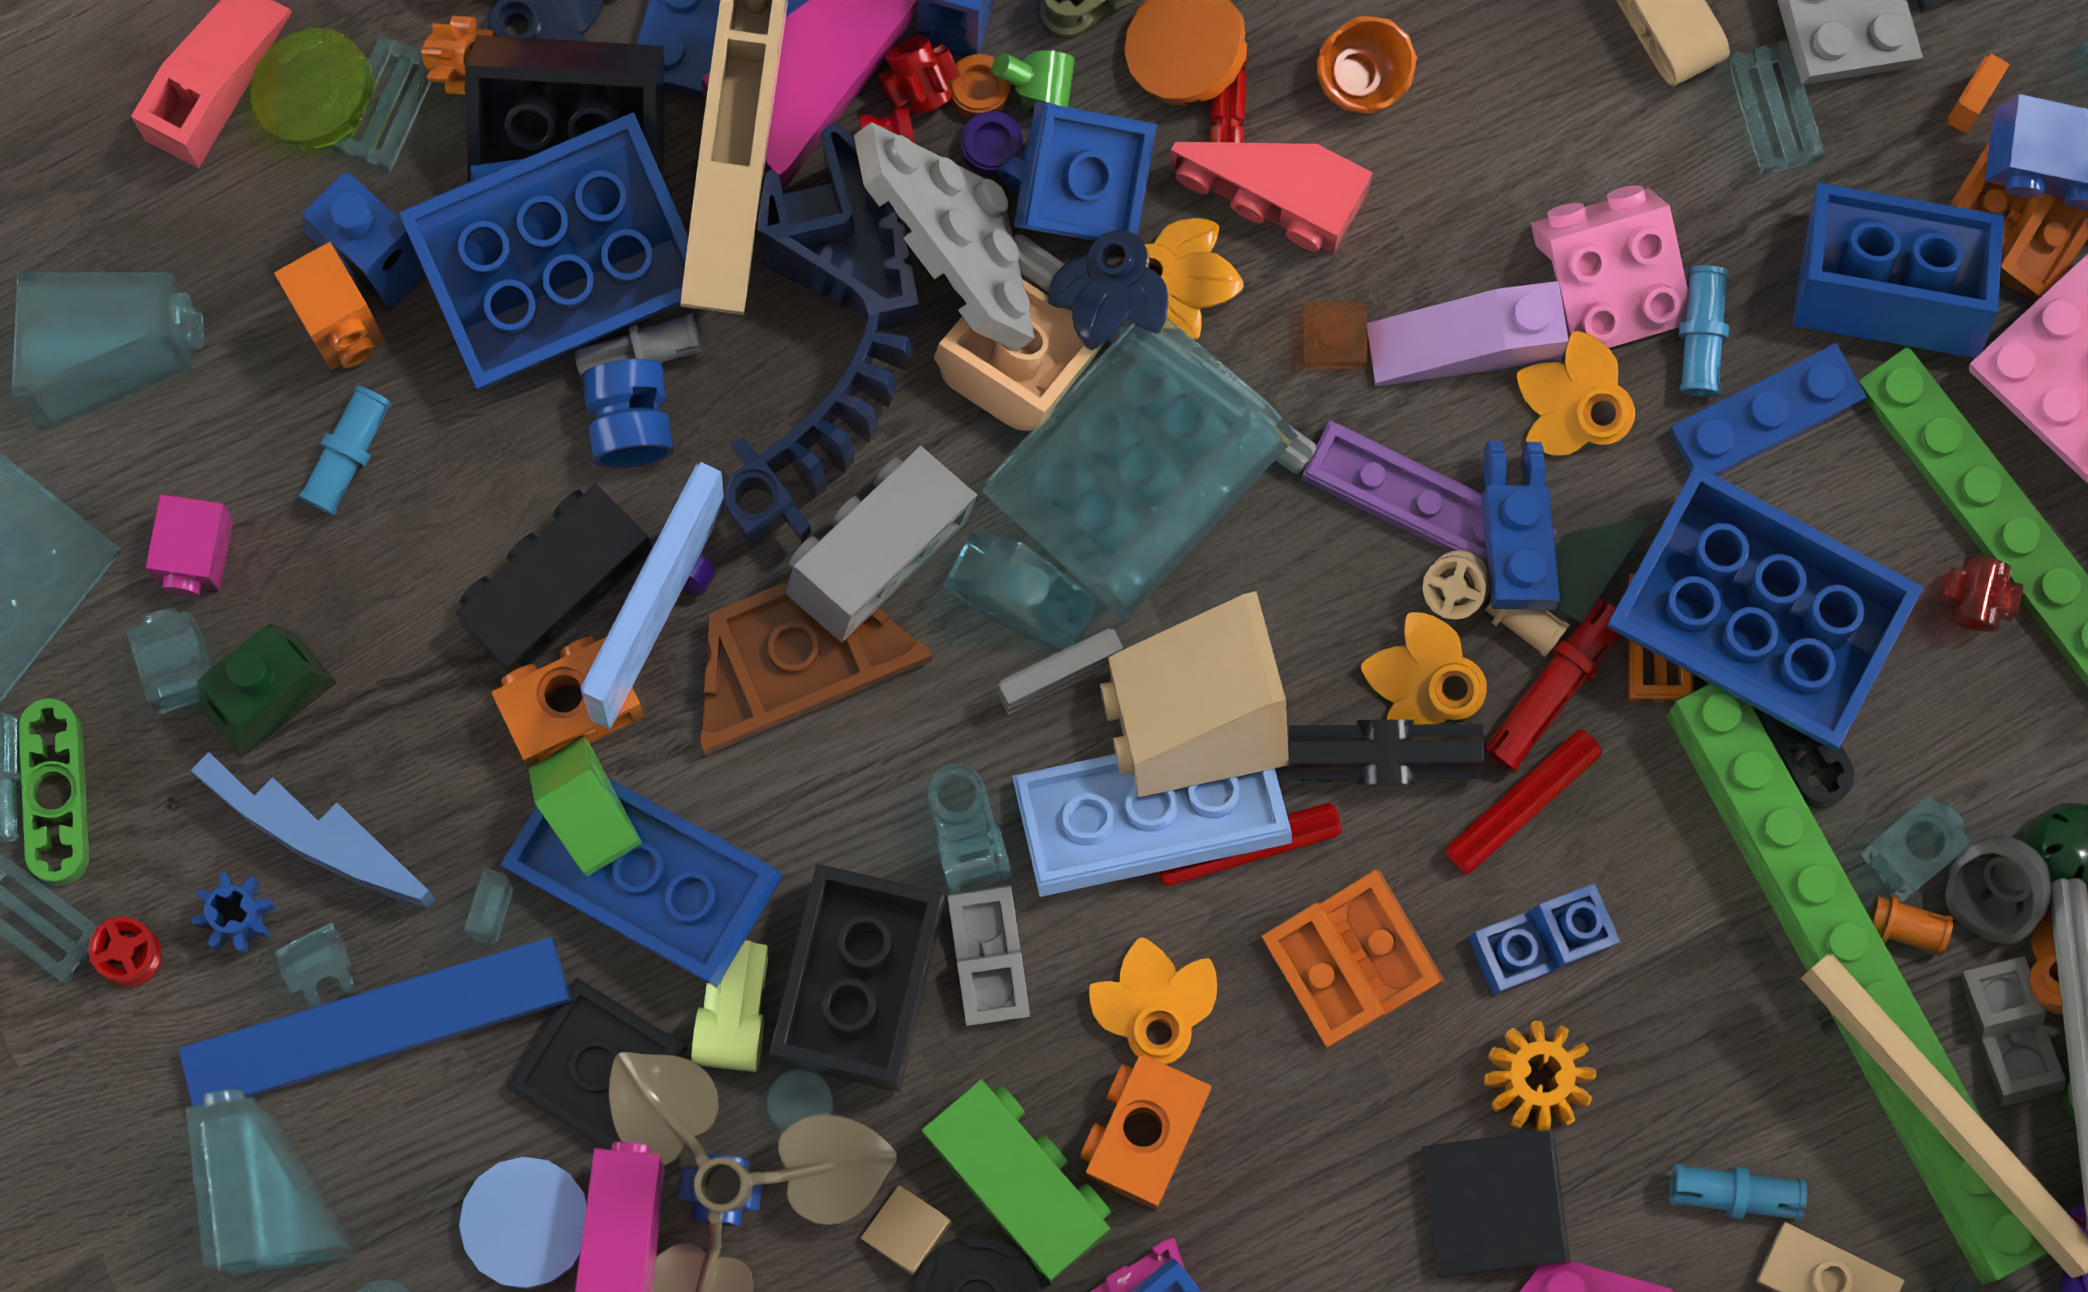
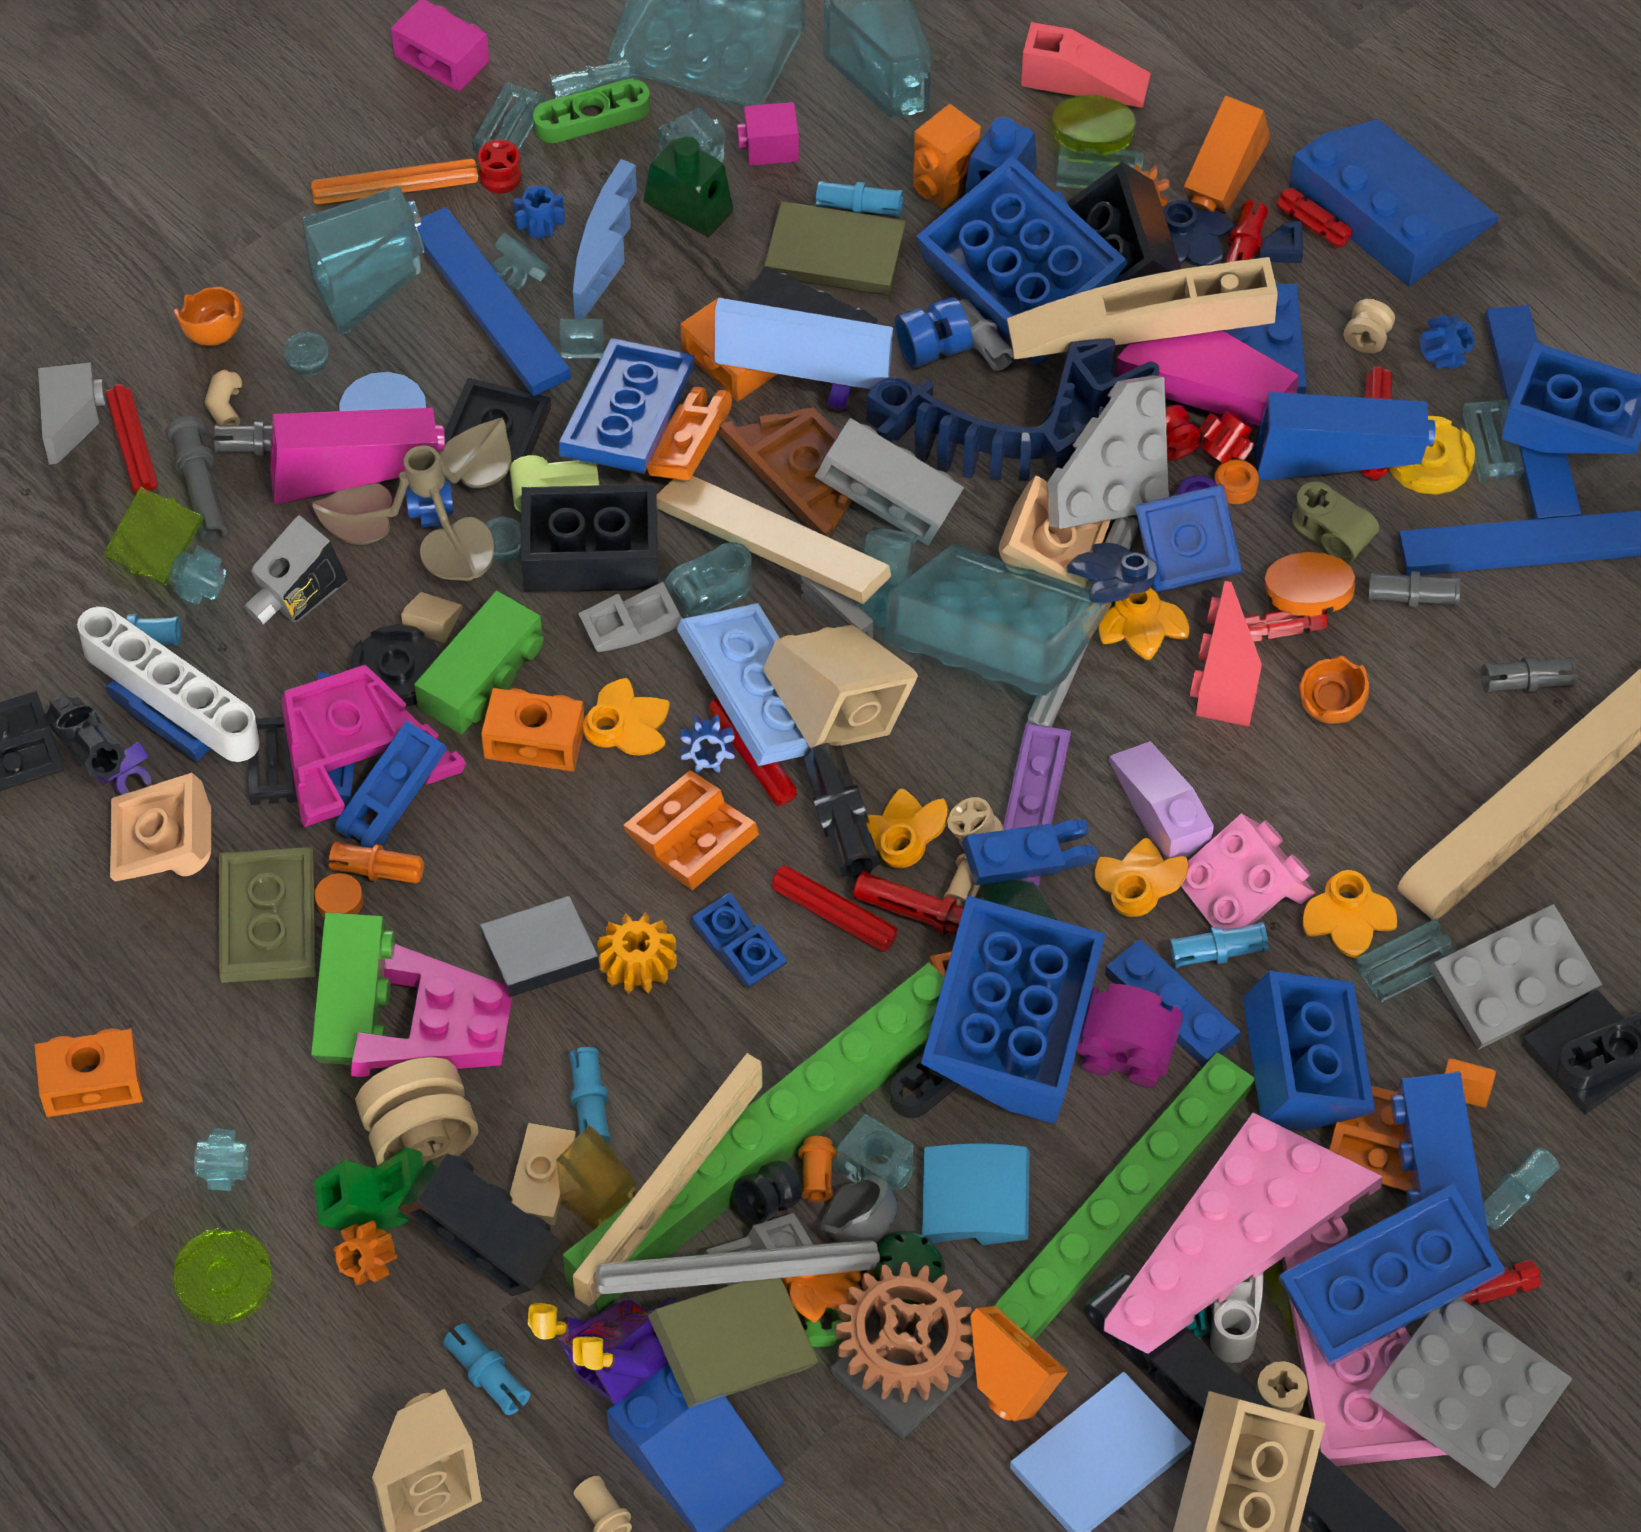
camera: 75 degrees right, 20 degrees down
(100, 1115) = (407, 178): none -> orange axle
(418, 508) = (836, 247): none -> olive tile
(582, 806) = (657, 359): bright green slope -> none
(710, 795) = (689, 434): none -> orange hinge
(930, 727) = (774, 537): none -> tan tile
(1038, 77) = (1251, 510): bright green piece -> none
(1236, 902) = (707, 757): none -> blue gear
(1334, 334) = (1135, 723): clear orange plate -> none
(1700, 159) = (1346, 919): none -> light orange plate
(1834, 476) = (1128, 1034): none -> magenta brick
(1890, 1213) = (593, 1179): none -> clear yellow slope
(1943, 997) = (769, 1191): none -> black wheel
(1981, 593) = (1080, 1159): clear red gear -> none
(1989, 736) = (976, 1193): none -> dark azure slope

